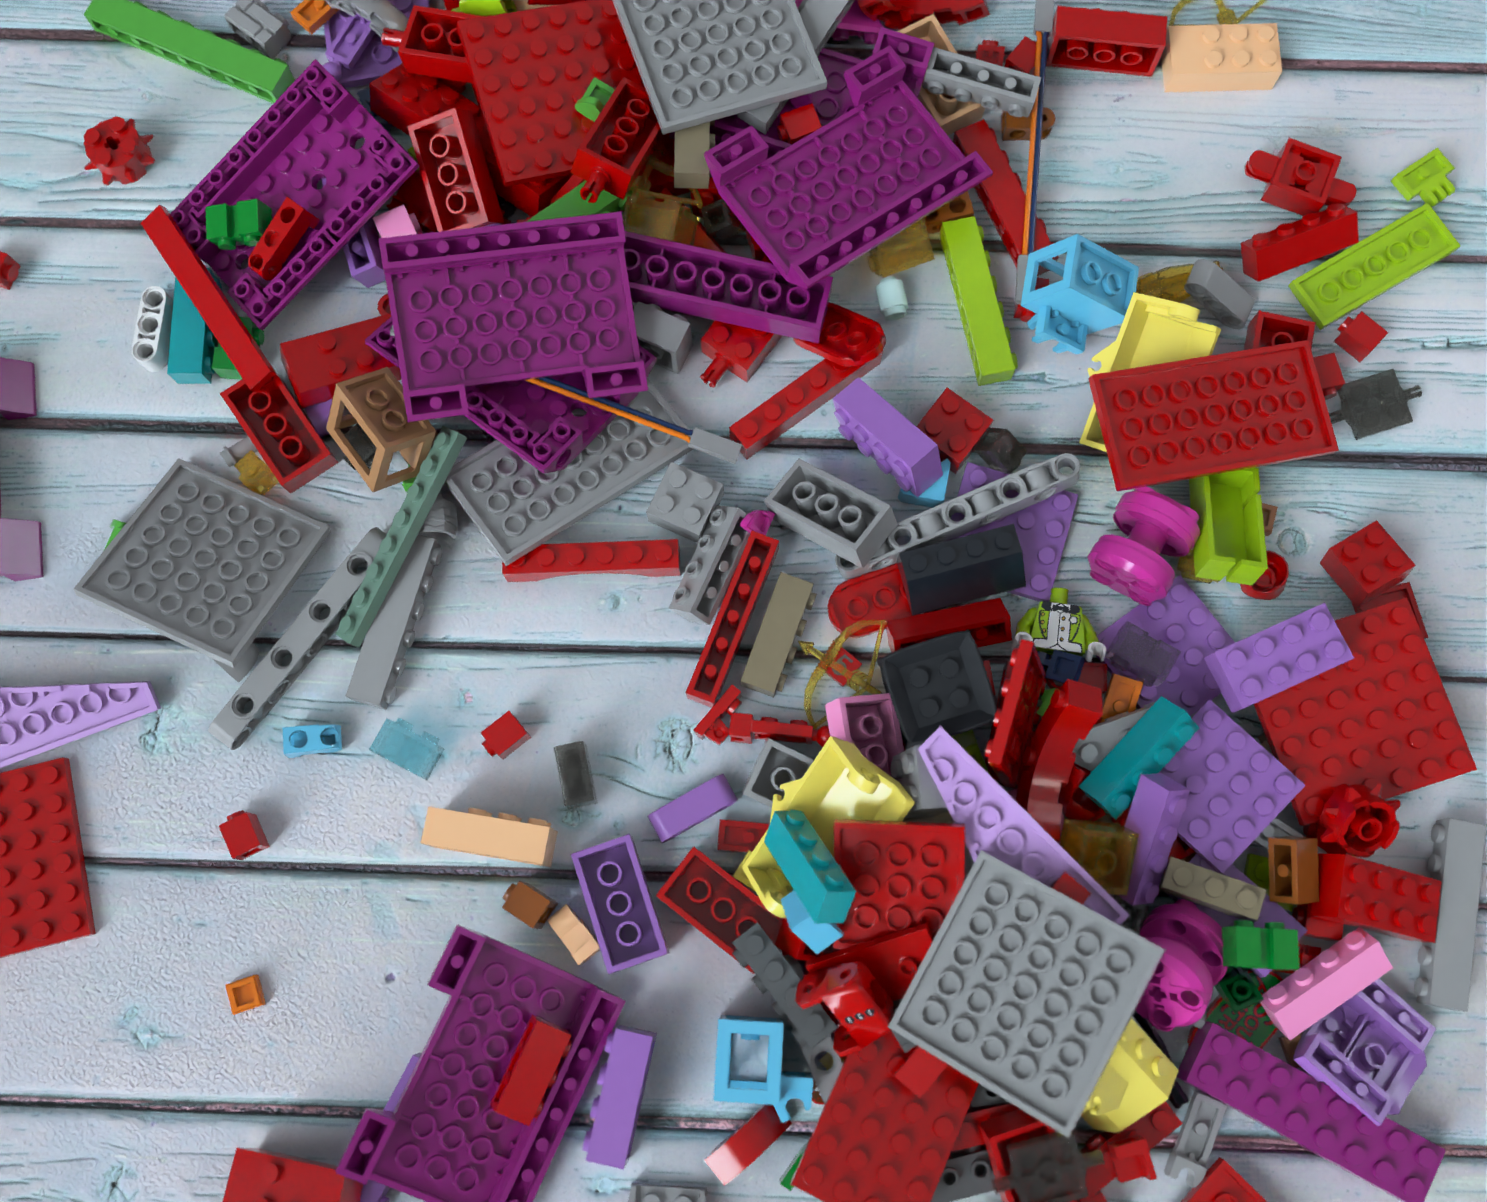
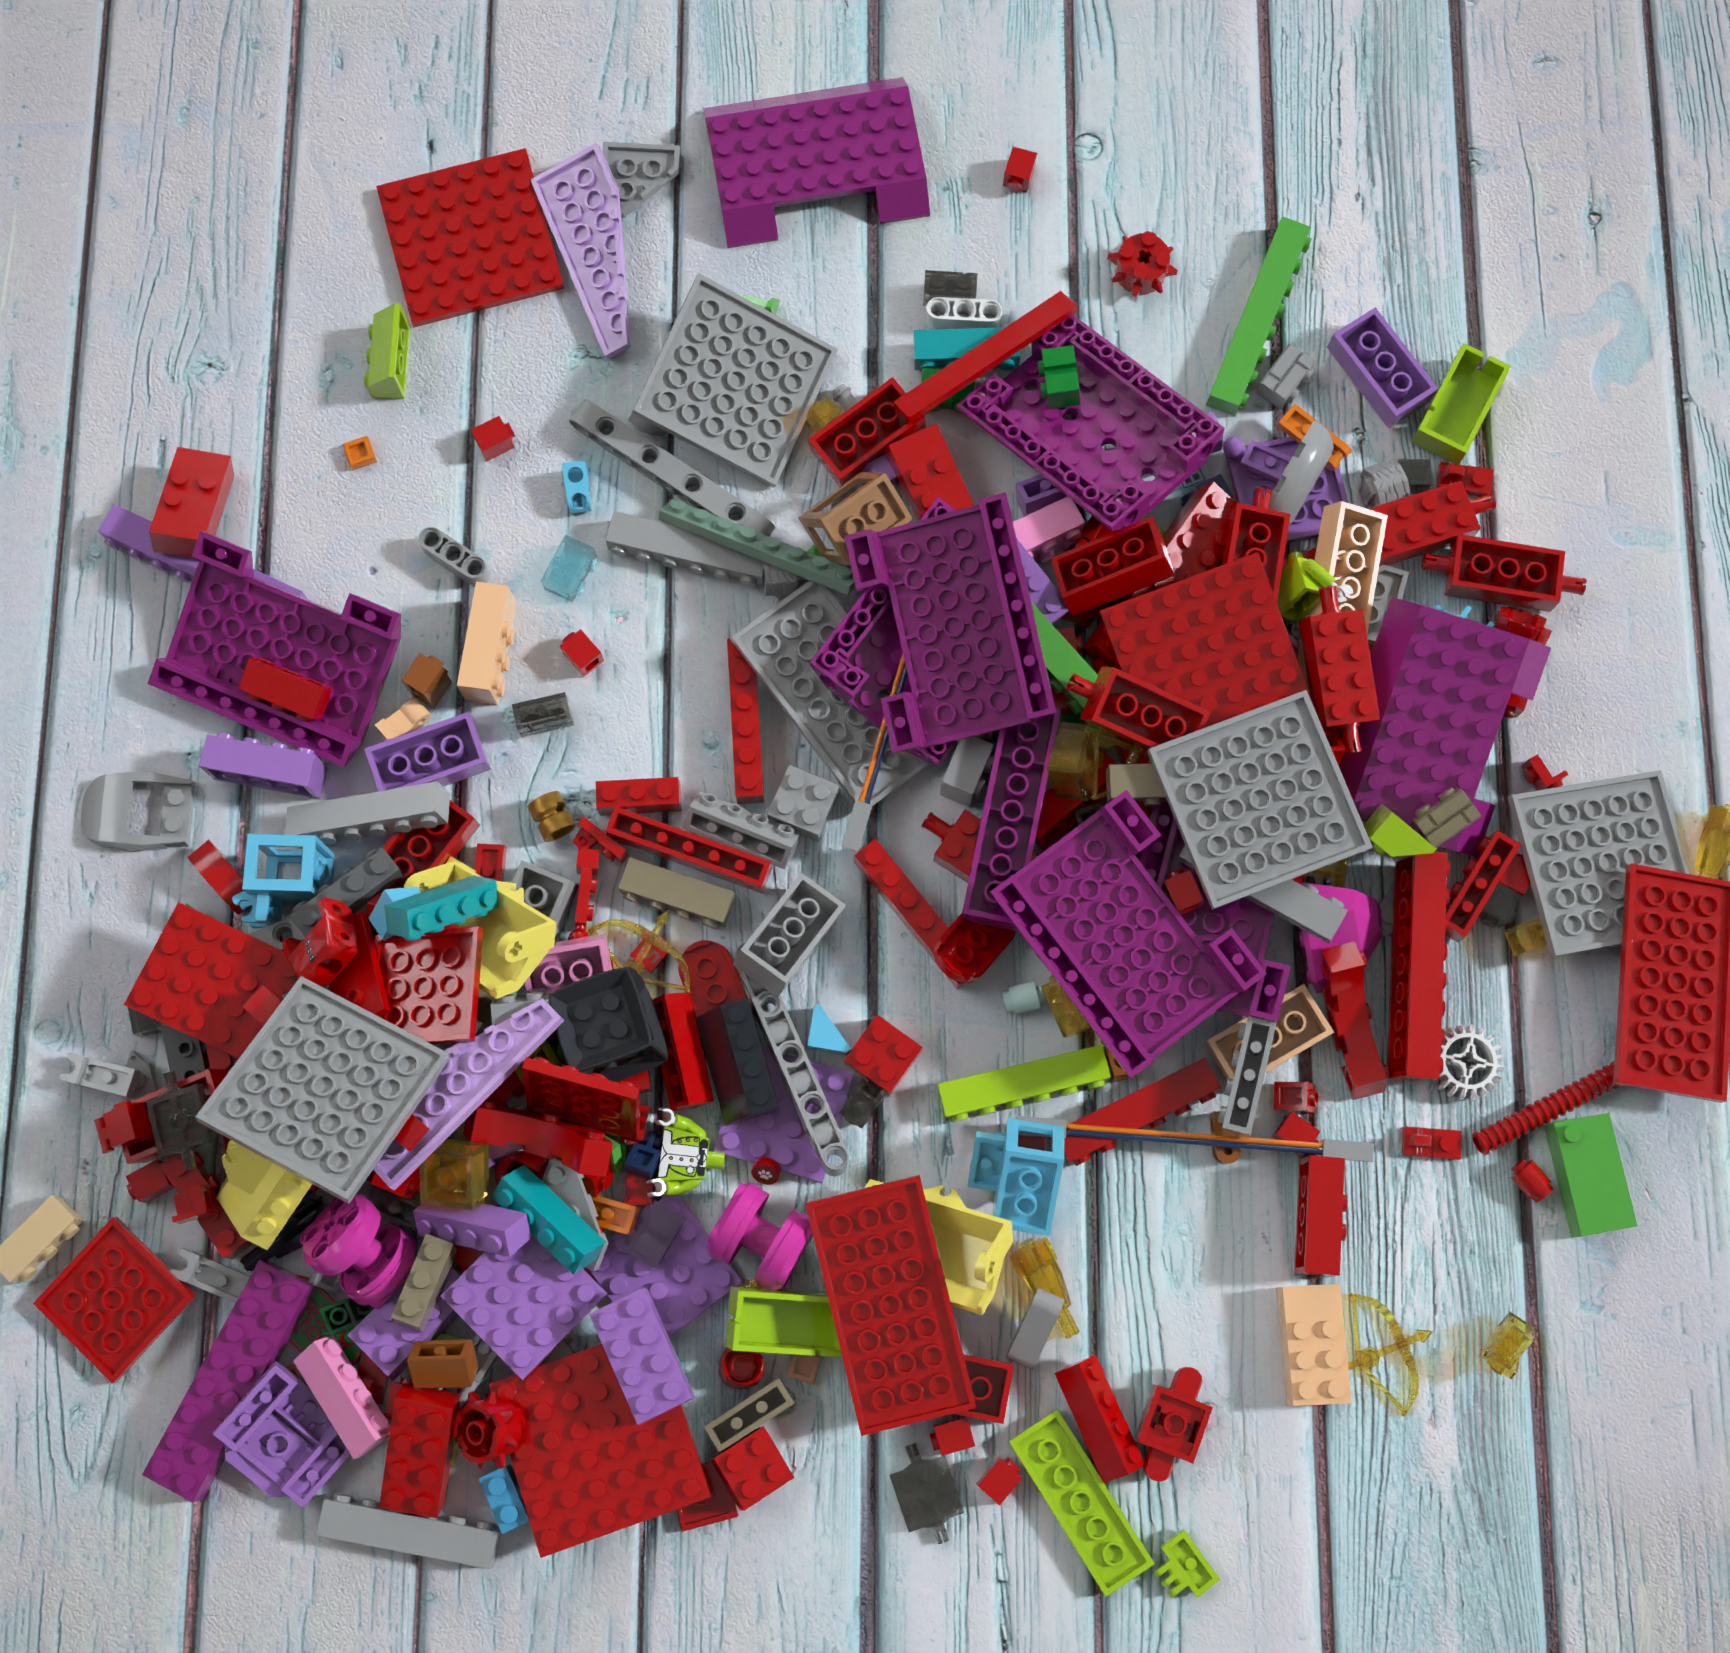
camera: 85 degrees right, 0 degrees up
(118, 341) = (949, 285): none -> clear smoke brick
(125, 961) = (388, 353): none -> lime slope
(280, 239) = (1044, 415): red leg -> none
(368, 885) = (445, 548): none -> light grey beam
(594, 99) = (1193, 690): bright green tile -> none
(671, 673) = (639, 795): none -> red brick
(687, 968) = (371, 813): none -> light grey brick
(690, 766) = (550, 813): none -> pearl gold wheel
(692, 808) = (515, 821): medium lavender beam -> none
(757, 521) = (781, 868): dark pink tile -> none
(887, 437) = (864, 986): medium lavender brick -> none
(1068, 548) = (766, 1170): none -> tile
(1260, 947) = (369, 1322): green brick -> none
(1314, 564) = (749, 1414): none -> dark tan brick
(1421, 808) = (505, 1498): none -> dark azure brick

